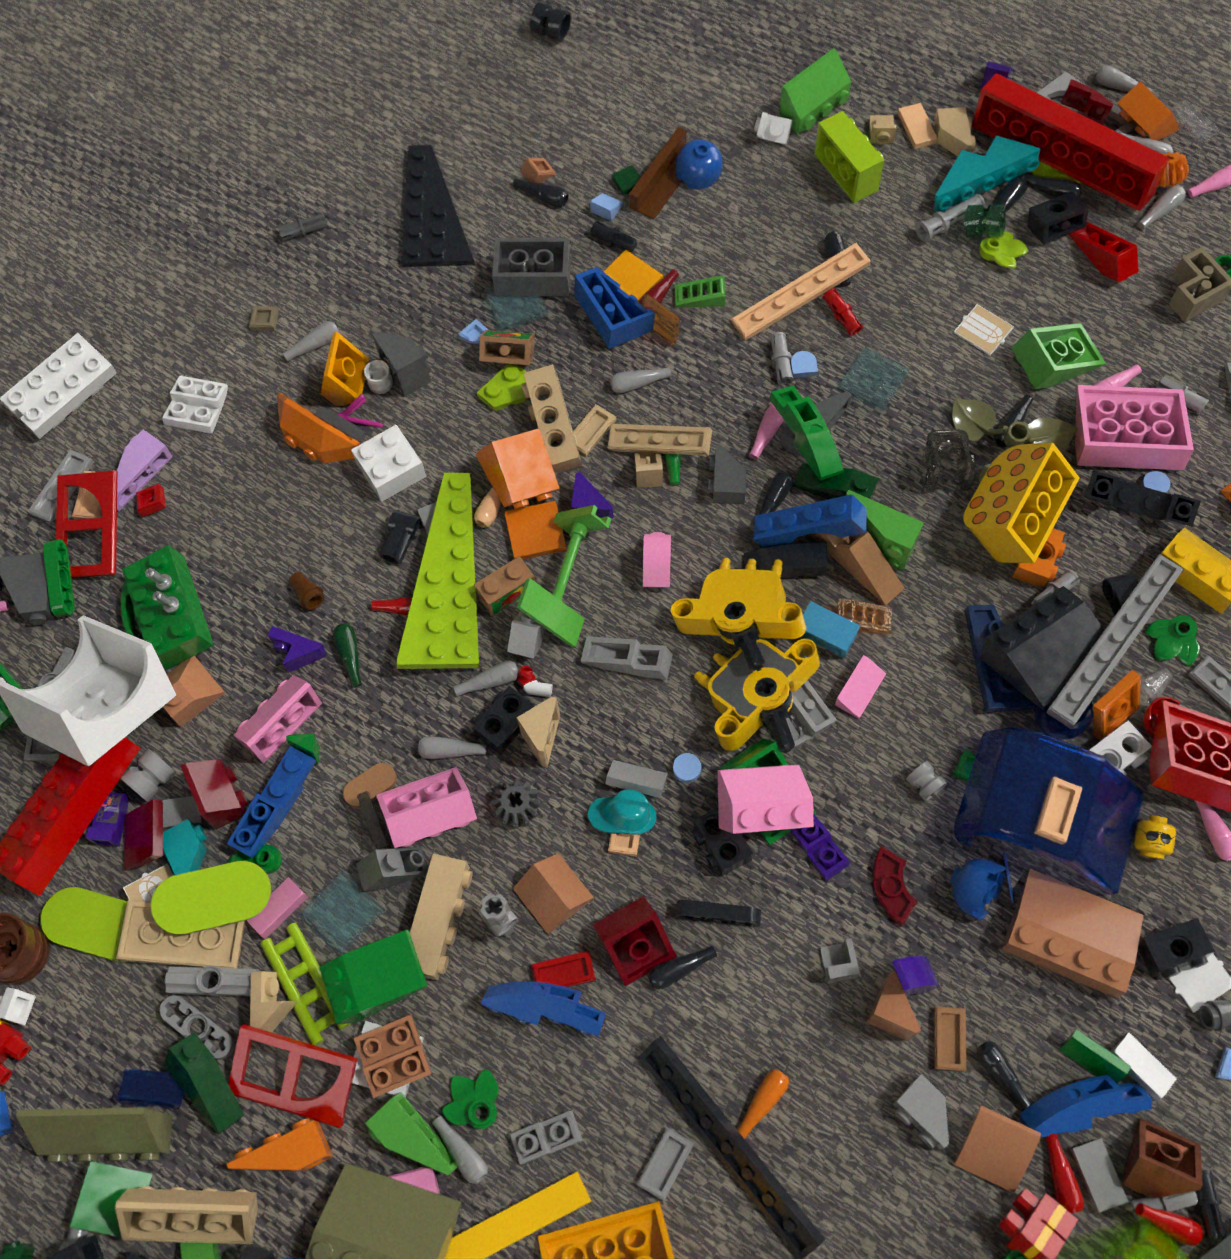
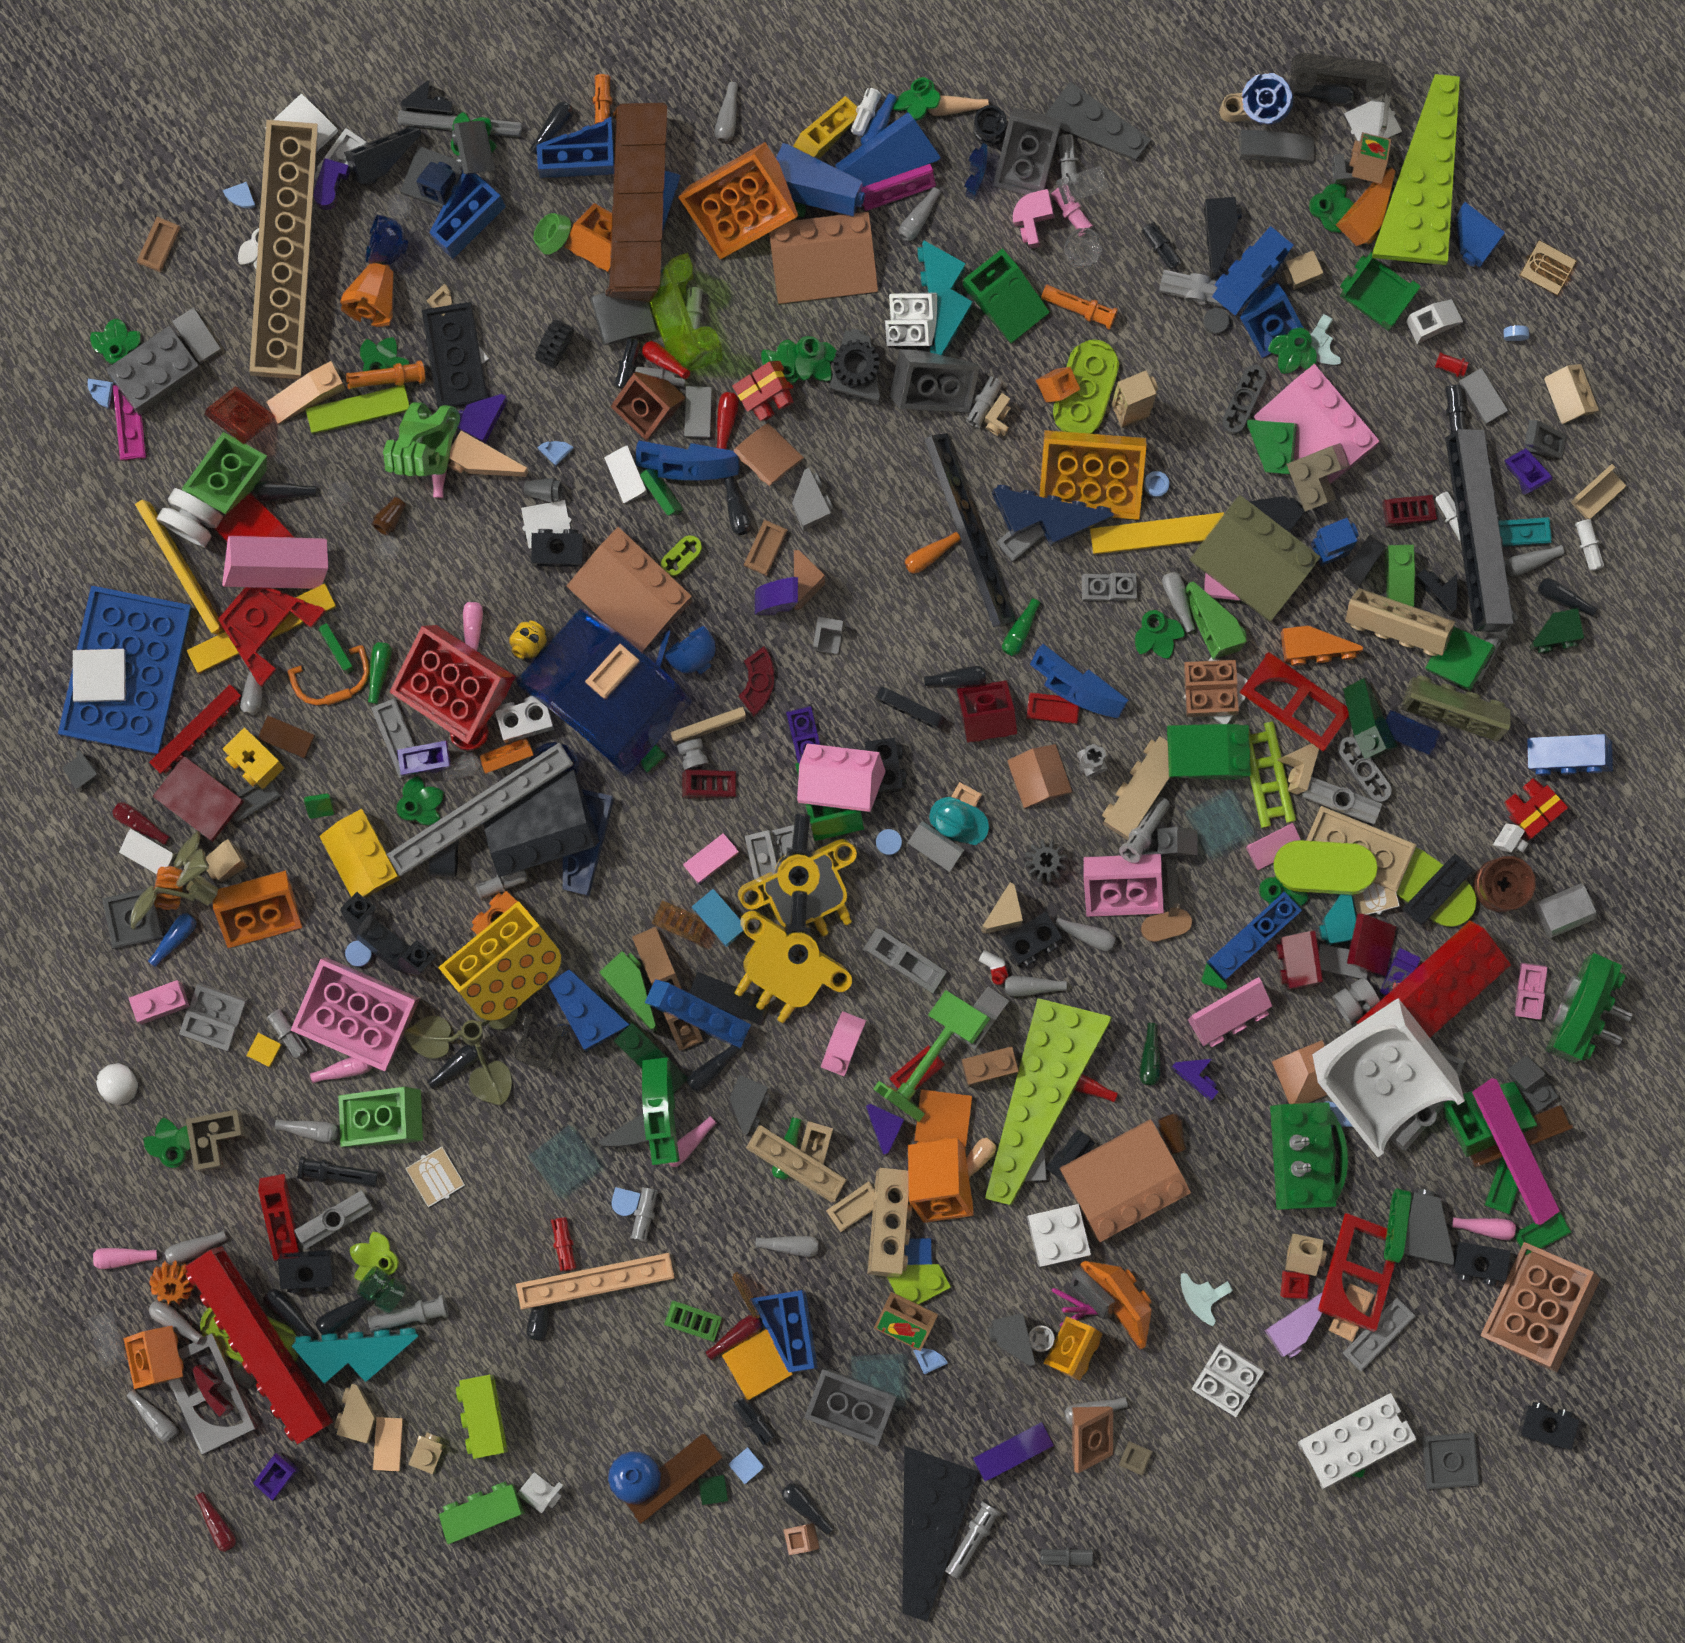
camera: 165 degrees left, 15 degrees up
(84, 920) = (1437, 890): none -> black tile
(152, 515) = (1305, 1254): none -> tan brick
(237, 464) = (1202, 1296): none -> light aqua piece
(307, 312) = (1091, 1436): none -> nougat slope
(336, 525) = (1125, 1180): none -> nougat slope
(376, 282) = (1013, 1451): none -> dark purple slope
(386, 220) = (978, 1529): none -> light grey pin
(420, 856) = (1141, 836): none -> light grey pin
(517, 413) = (919, 1251): none -> blue tile
(585, 557) = (907, 1070): none -> red tile
(630, 1044) = (1018, 633): none -> green piece
(633, 1195) = (1056, 518): none -> dark blue slope
(891, 750) = (708, 793): none -> dark red slope
(921, 499) = (585, 1011): none -> blue wedge
(923, 816) = (708, 726): none -> tan tile
(1024, 28) = (219, 1530): none -> dark red piece
(1044, 996) = (677, 552): none -> lime beam
(1055, 263) = (318, 1229): none -> light grey piece
(1083, 298) = (323, 1170): none -> black pin
(1109, 327) = (309, 1129): none -> light grey piece
(1194, 376) = (264, 1050): none -> yellow tile
(1198, 674) = (424, 758): none -> slope

